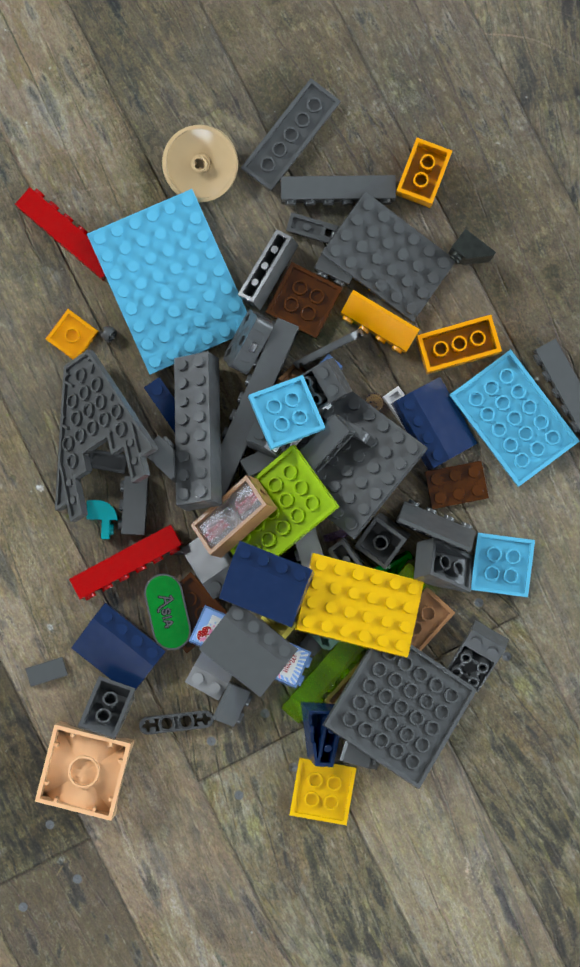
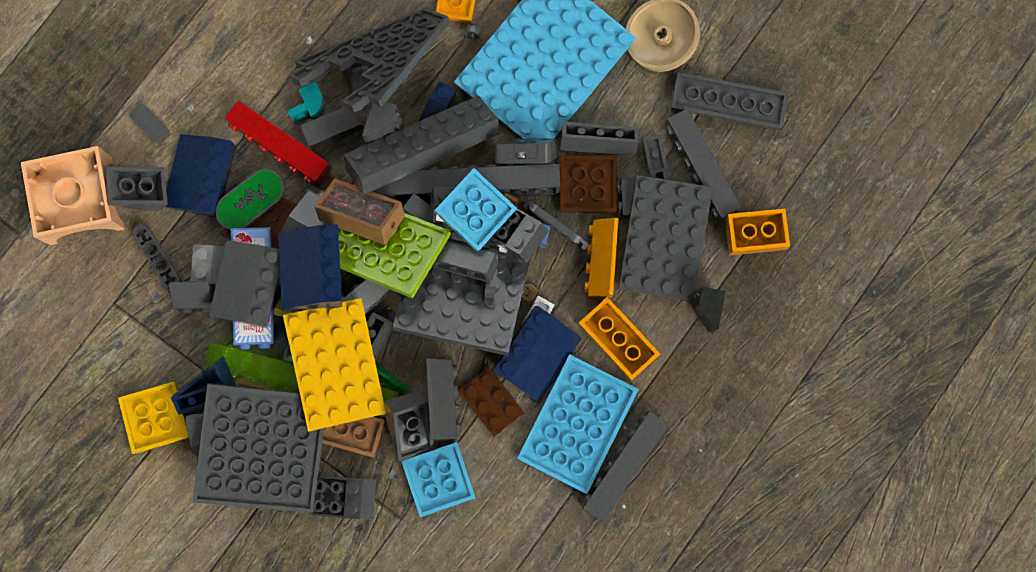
camera: 60 degrees right, 5 degrees down
(382, 540) = (407, 358): dark grey slope -> none

